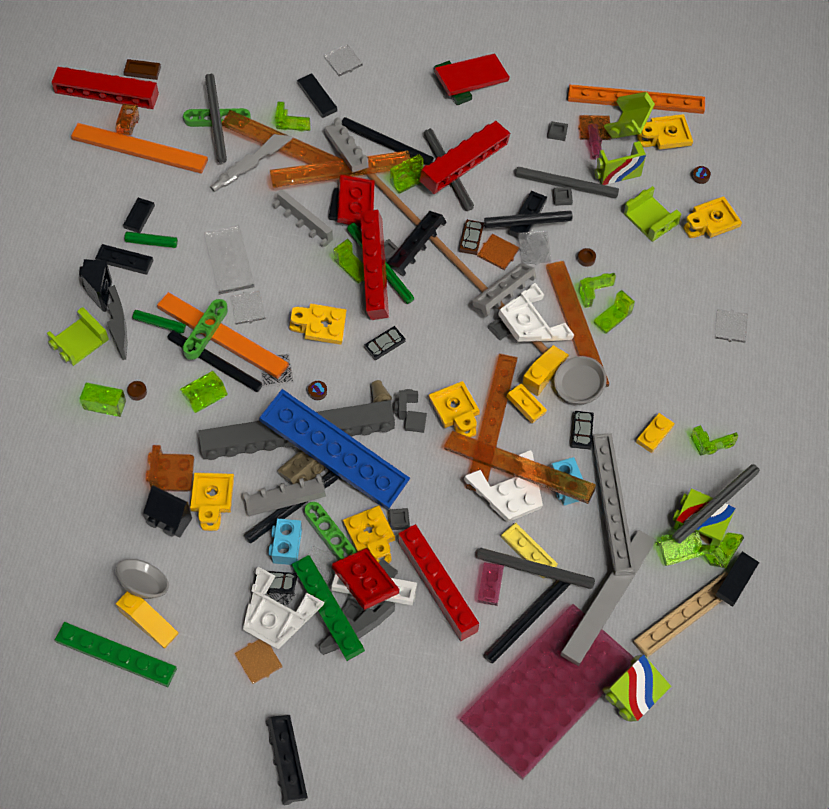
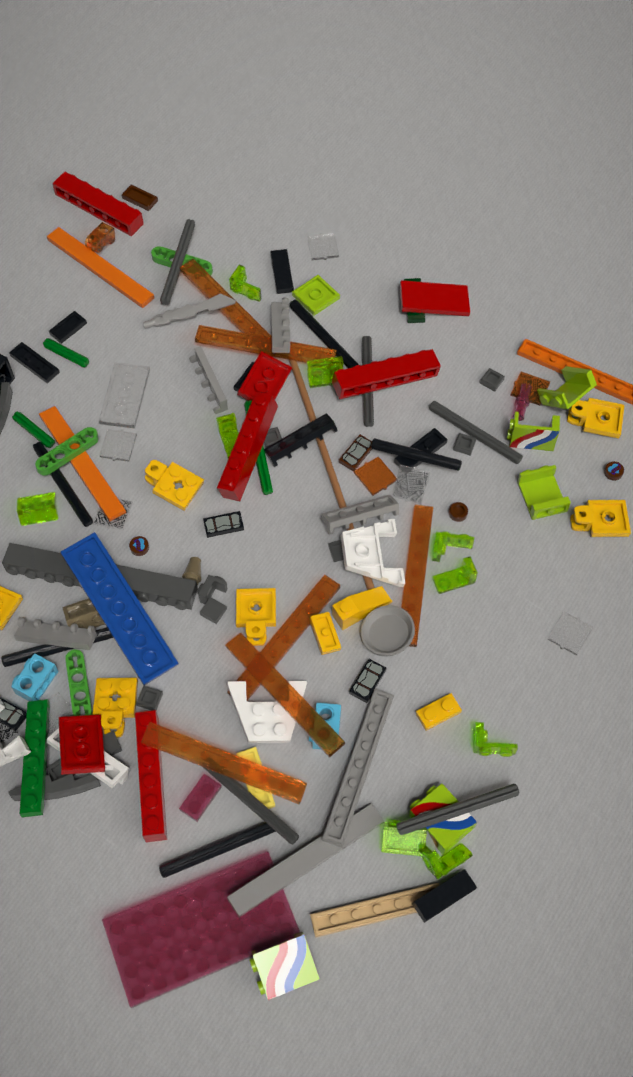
camera: 25 degrees right, 0 degrees up
(360, 107) = (316, 295): none -> lime tile
(498, 545) = (224, 763): none -> clear orange tile

